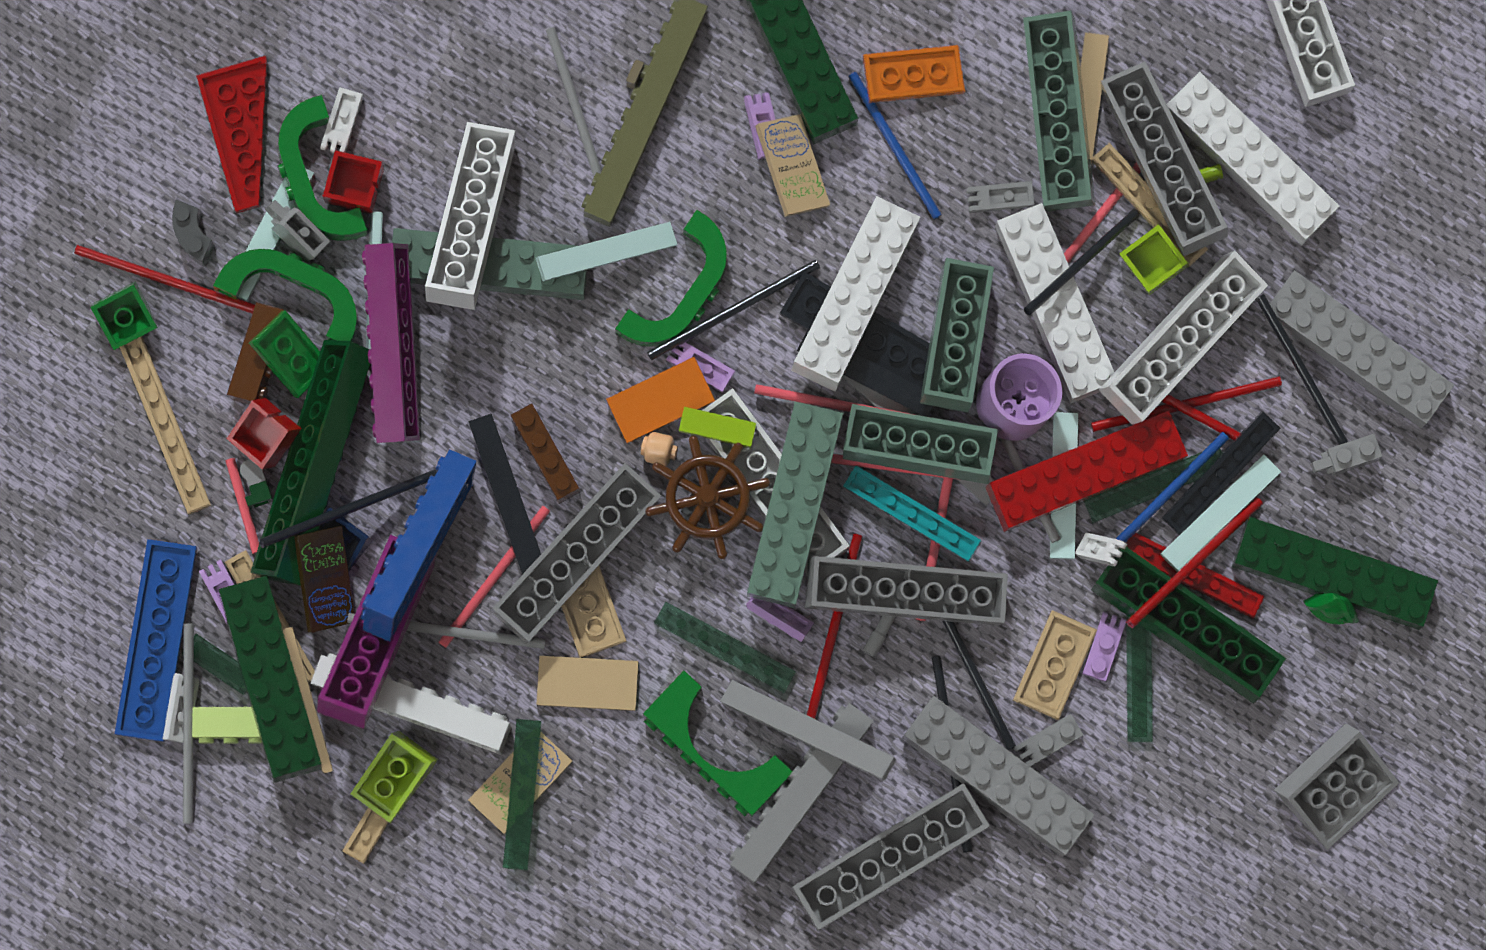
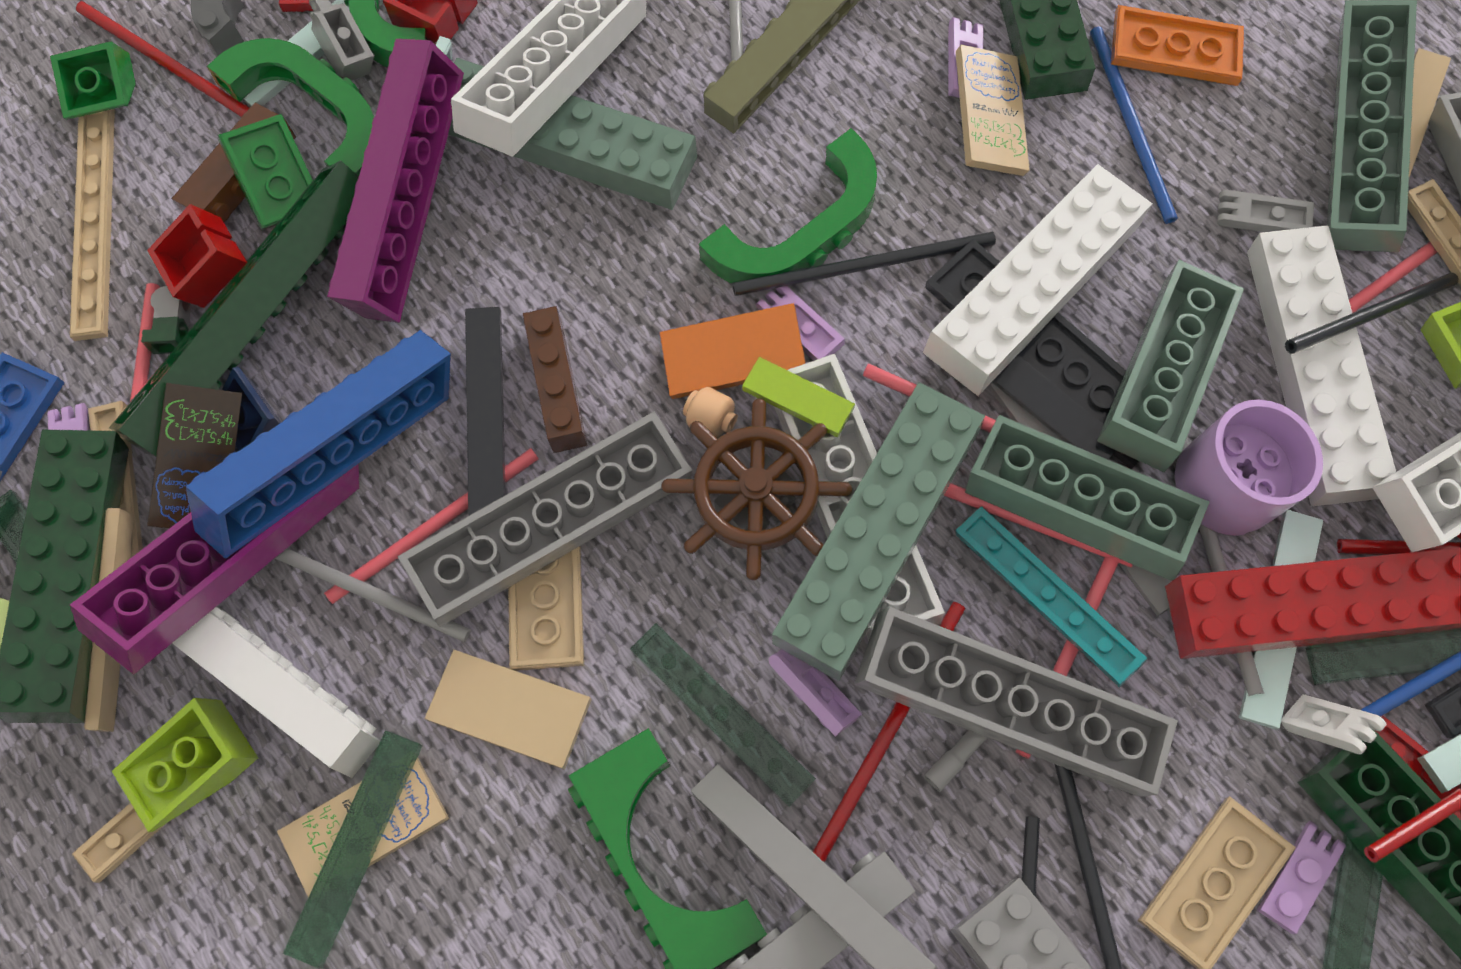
camera: 25 degrees right, 10 degrees down
(346, 509) = (212, 374): black piece -> none
(606, 251) = (715, 146): light aqua tile -> none

